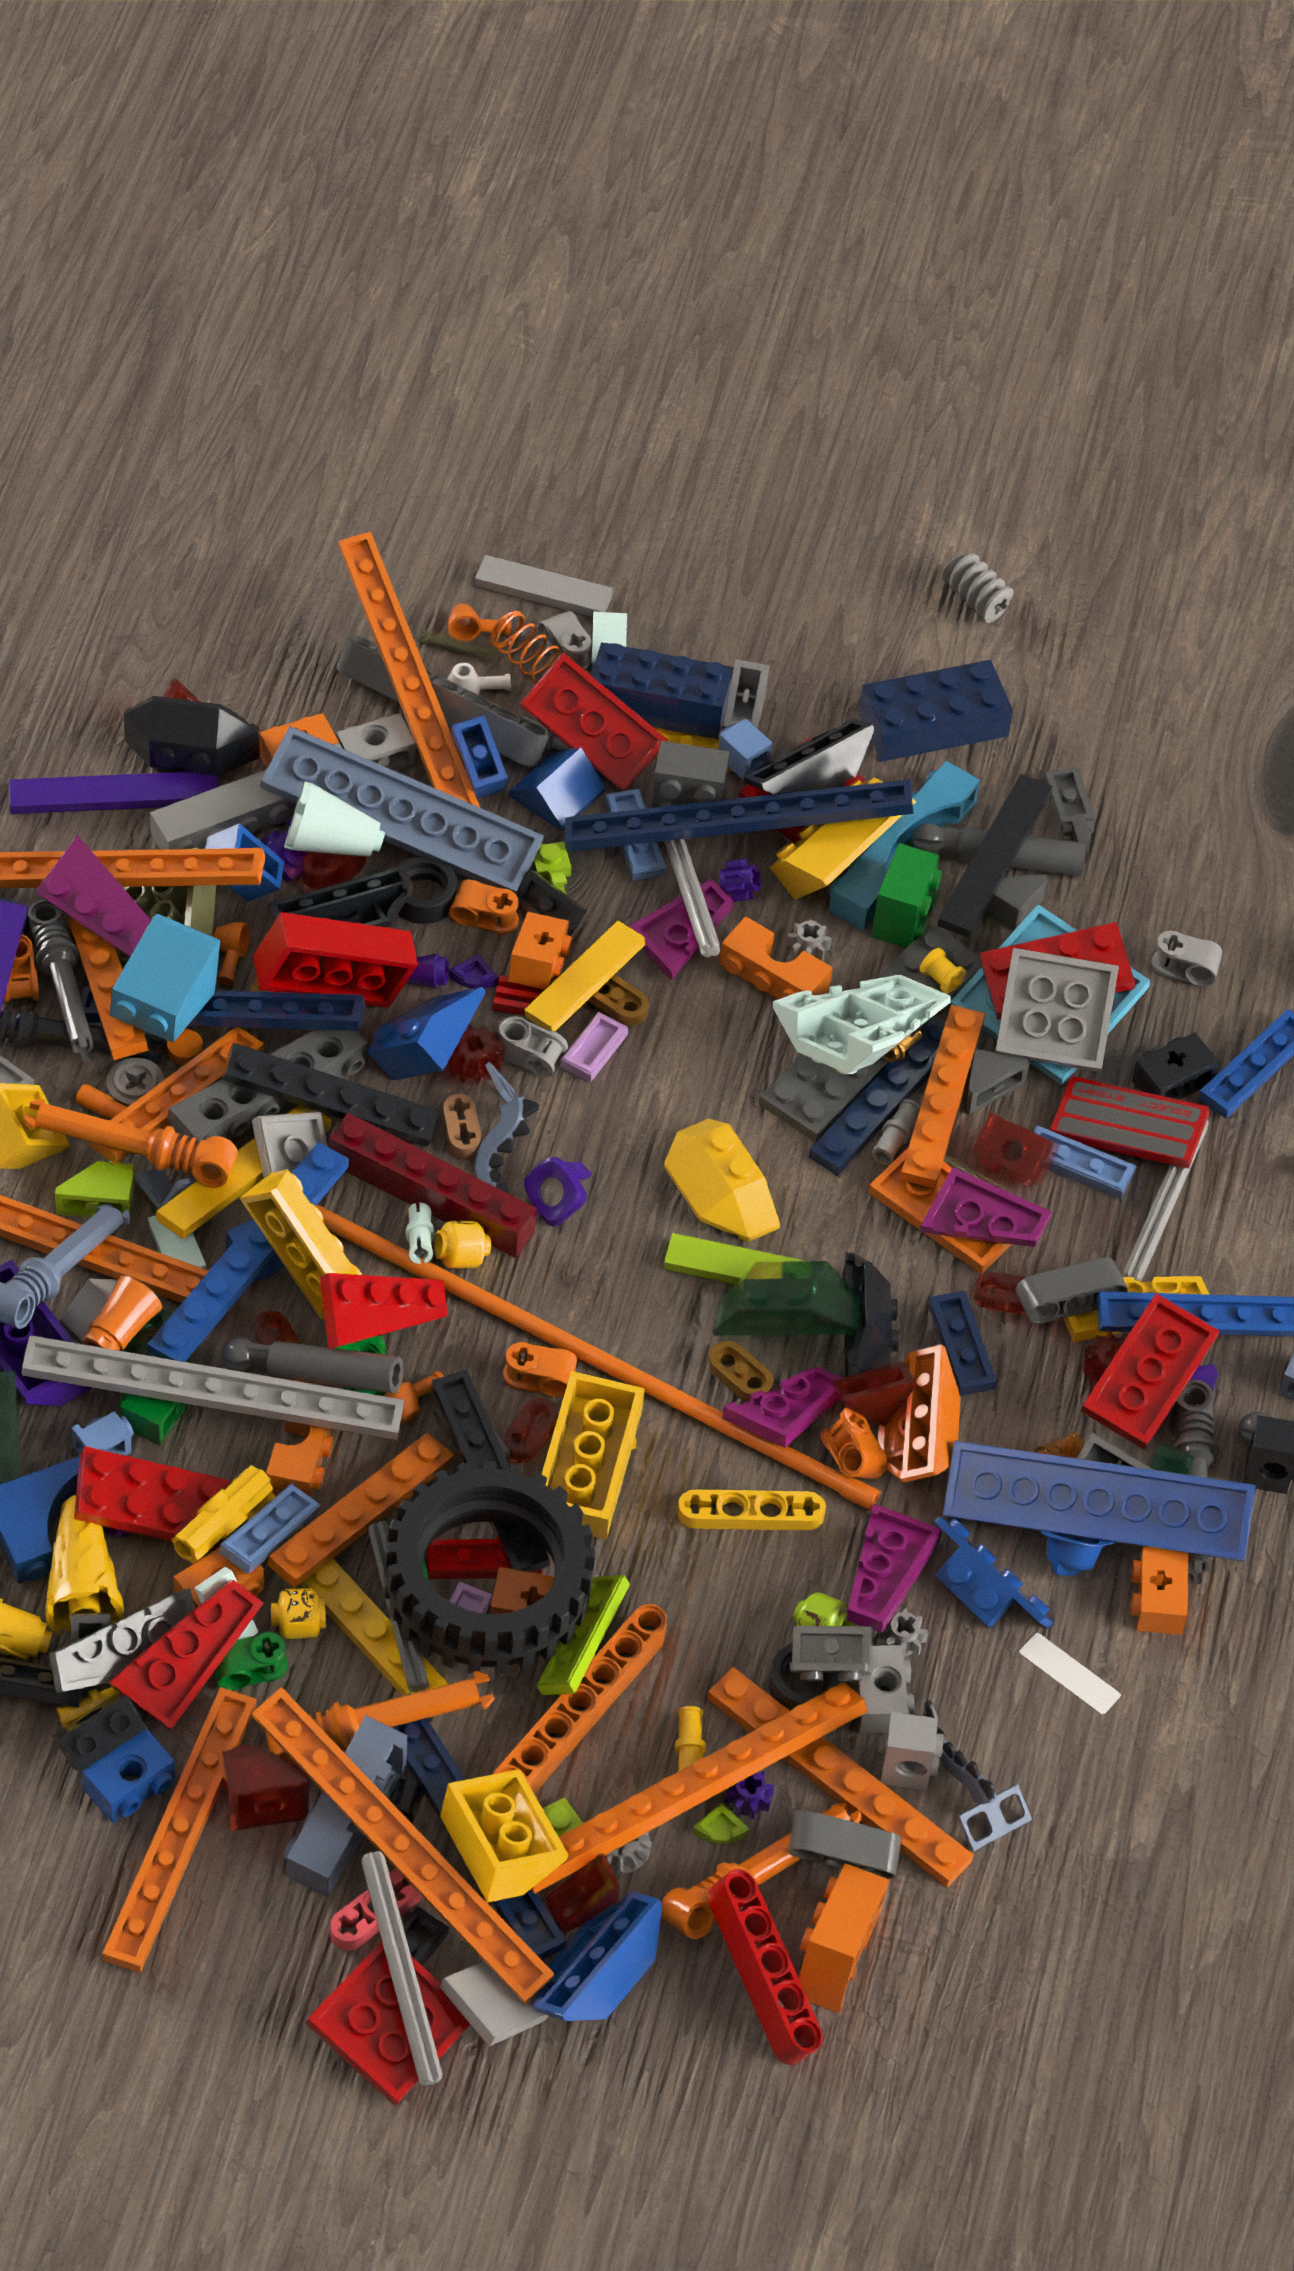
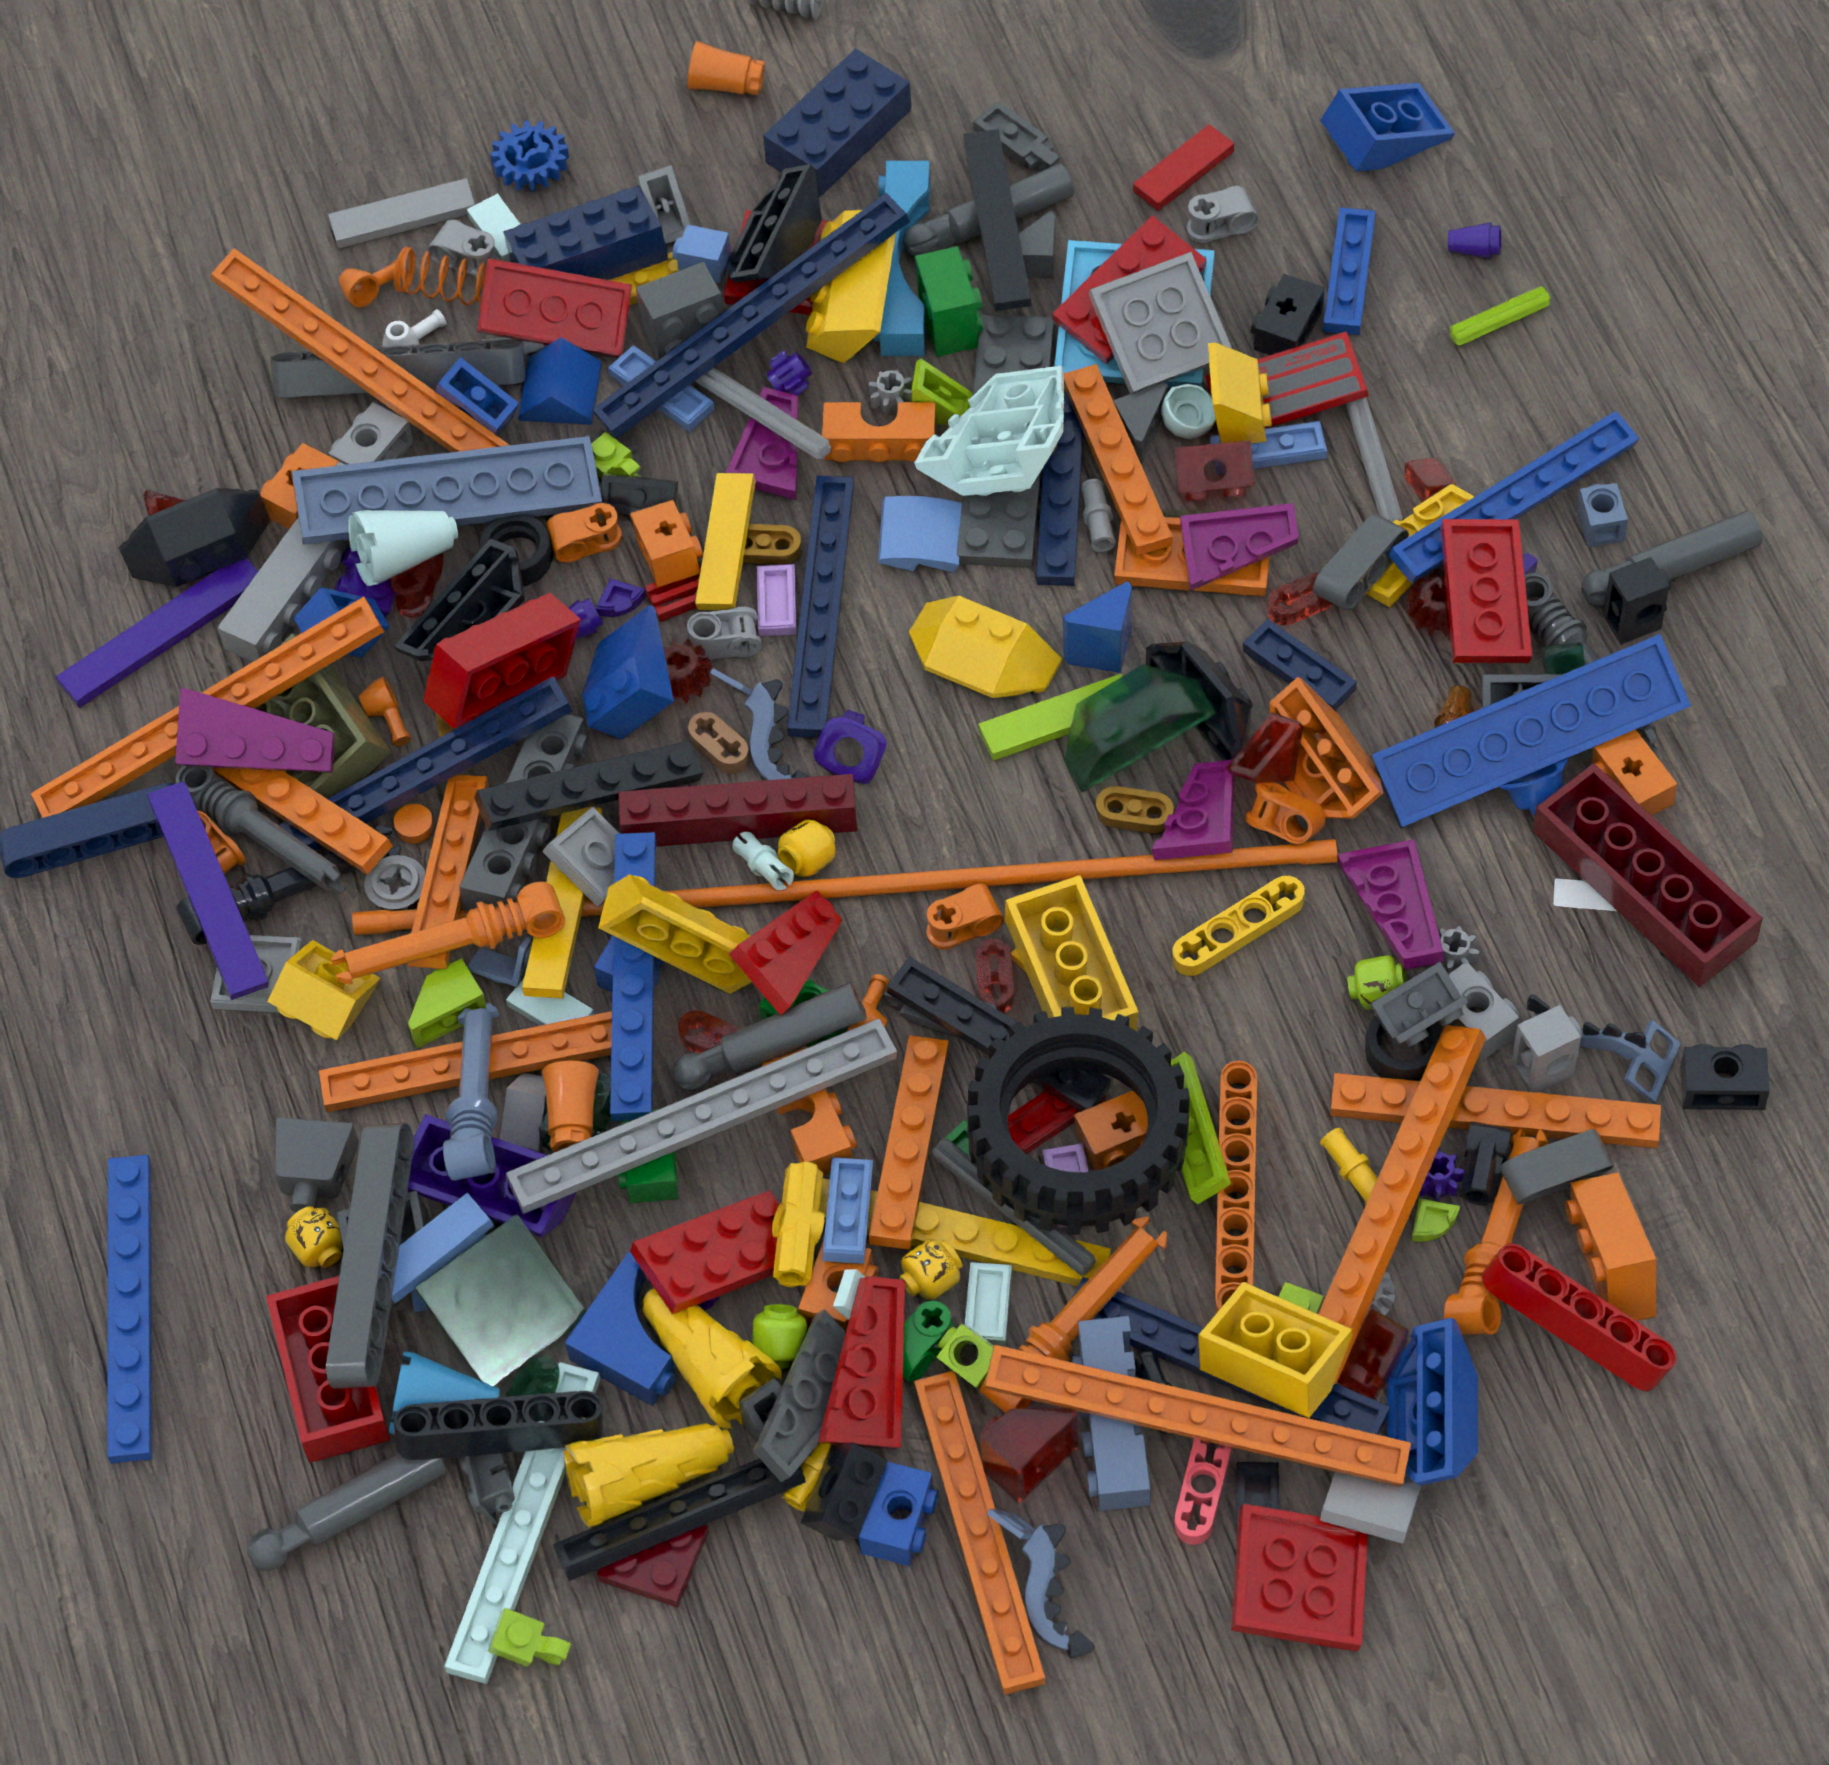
camera: 25 degrees left, 5 degrees up
(104, 1433) = (627, 1223): medium blue brick -> none
(145, 1585) = (779, 1333): none -> lime head
(166, 978) = (368, 769): dark azure slope -> none
(195, 1895) = (1042, 1582): none -> sand blue piece
(270, 1678) = (950, 1354): none -> lime brick
(325, 1669) = (989, 1301): none -> light aqua tile
(401, 1968) = (1280, 1525): light grey axle -> none
(488, 651) = (374, 312): olive piece -> none
(623, 1069) = (820, 606): none -> dark blue plate
(674, 598) = (529, 155): none -> blue gear
(745, 1061) = (919, 532): none -> medium blue slope
(802, 1793) = (1485, 1152): none -> black piece
(821, 1218) = (1100, 631): none -> blue slope
(847, 962) = (934, 386): none -> lime slope
(877, 619) = (724, 71): none -> orange plant
(942, 970) = (1031, 348): yellow bush -> none
(980, 1583) = (1479, 866): blue bracket -> none
(1033, 1094) = (1188, 411): none -> light aqua hair
(1049, 1884) = (1708, 1091): none -> black brick
(1074, 1101) = (1238, 395): none -> yellow slope
(1105, 1671) = (1647, 875): none -> dark red brick
(1189, 905) = (1183, 167): none -> red tile
(1190, 1259) = (1427, 477): none -> clear red slope

